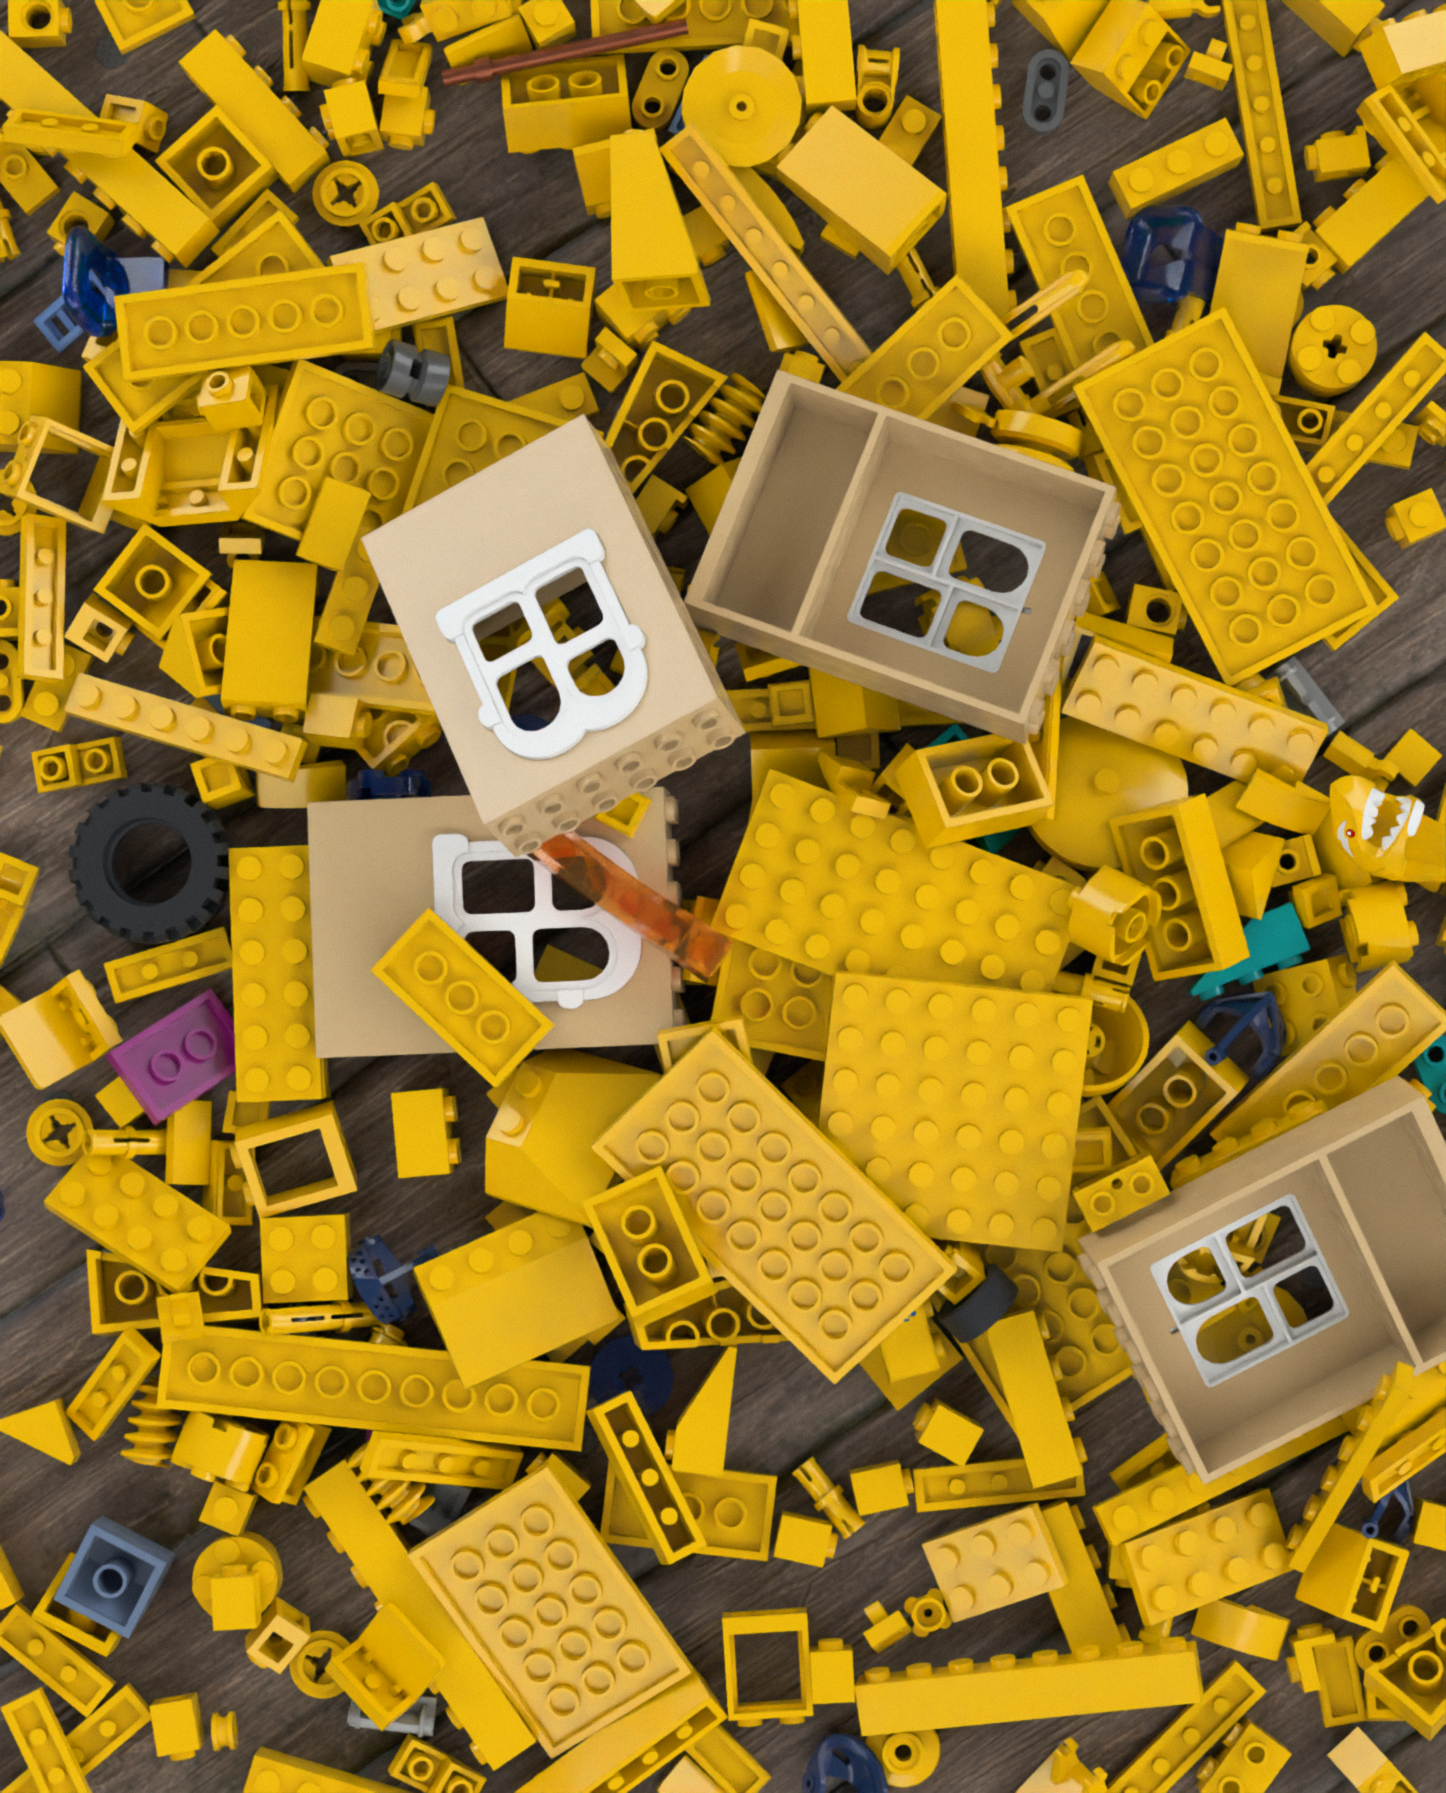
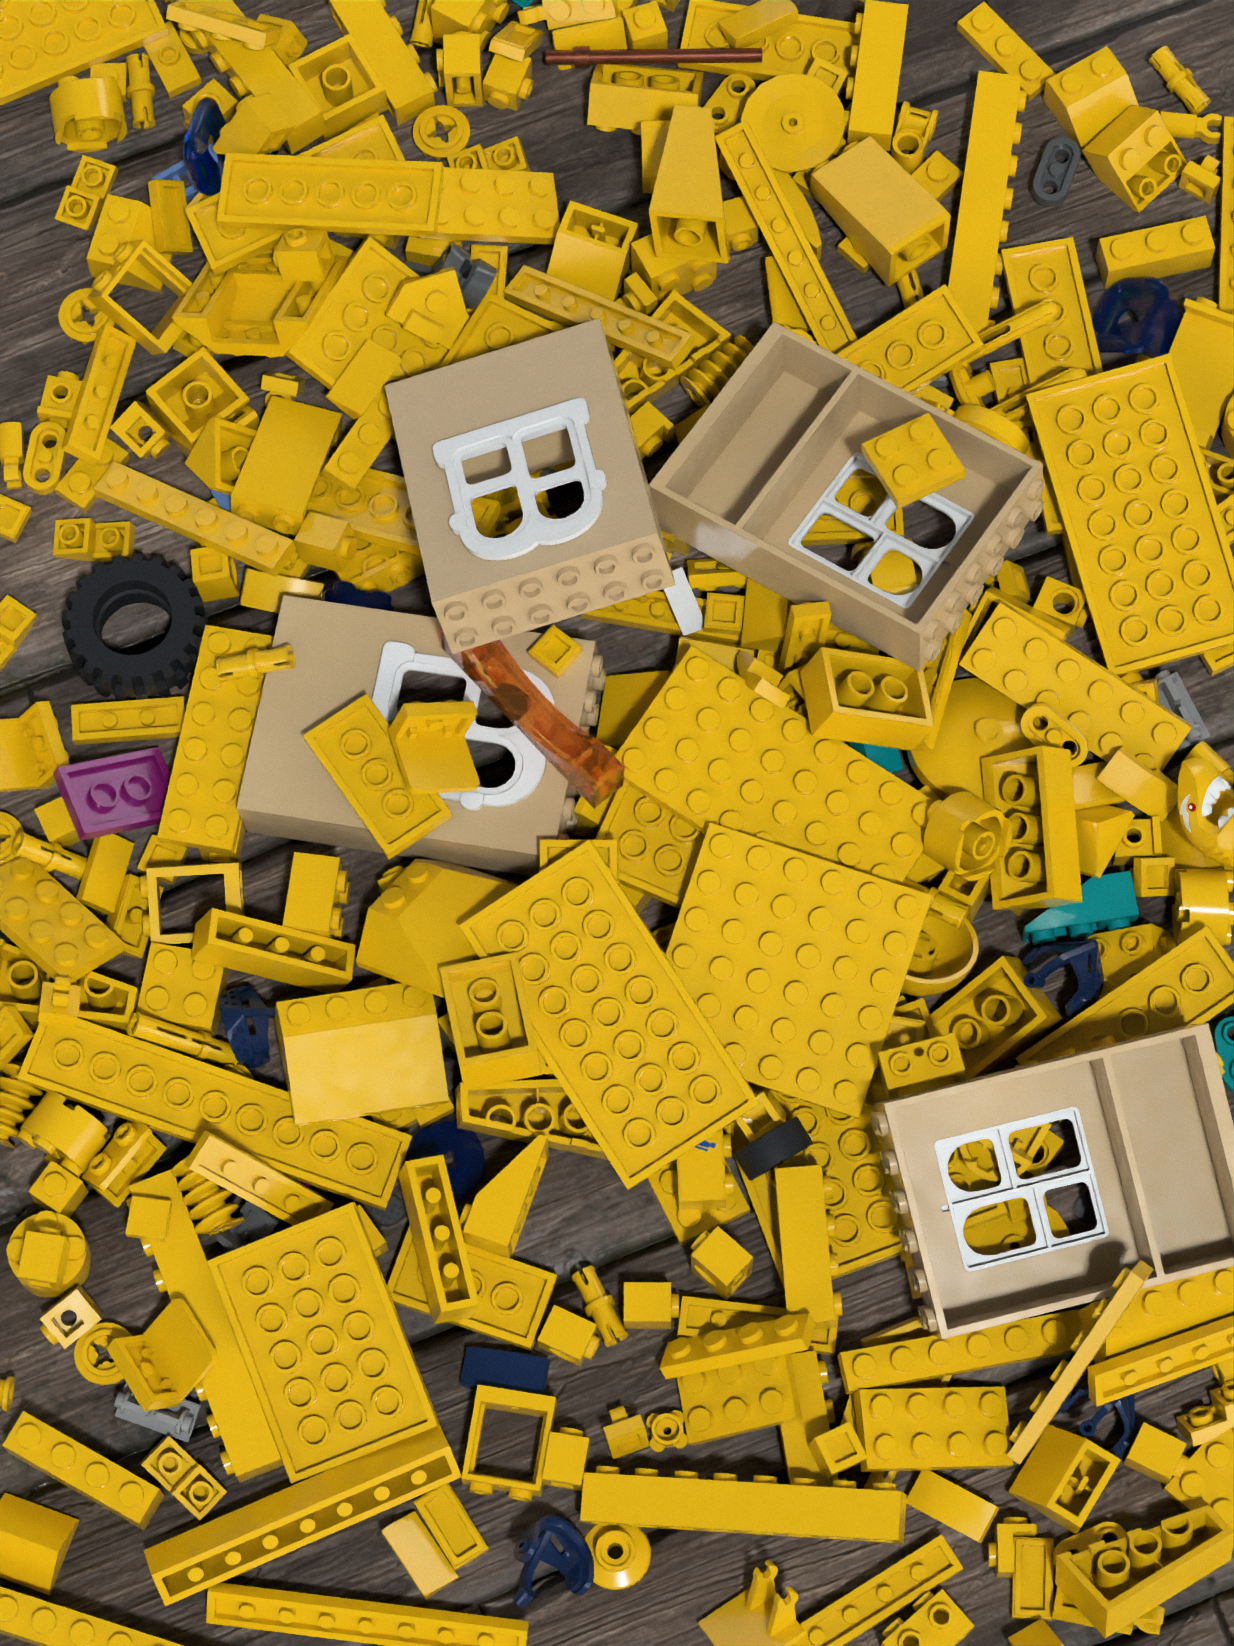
camera: 10 degrees right, 15 degrees down
(63, 363) = (169, 217): none -> yellow tile
(140, 258) = (255, 128): none -> yellow slope
(296, 890) = (255, 663): none -> yellow pin
(334, 1521) = (148, 1218): none -> yellow tile
(387, 423) = (431, 307): none -> yellow plate
(394, 1203) = (273, 951): none -> yellow brick
(519, 959) = (434, 747): none -> yellow bracket
(578, 391) = (621, 324): none -> yellow plate
(712, 832) = (625, 702): none -> yellow tile
(745, 1590) = (504, 1370): none -> dark blue slope
(746, 702) = (684, 604): none -> white sticker
(889, 730) = (804, 634): none -> yellow plate
(971, 513) = (913, 460): none -> yellow plate
(986, 1520) = (737, 1345): none -> yellow plate
(1115, 1612) = (837, 1450): none -> yellow panel
(1179, 770) = (1055, 733): none -> yellow plate

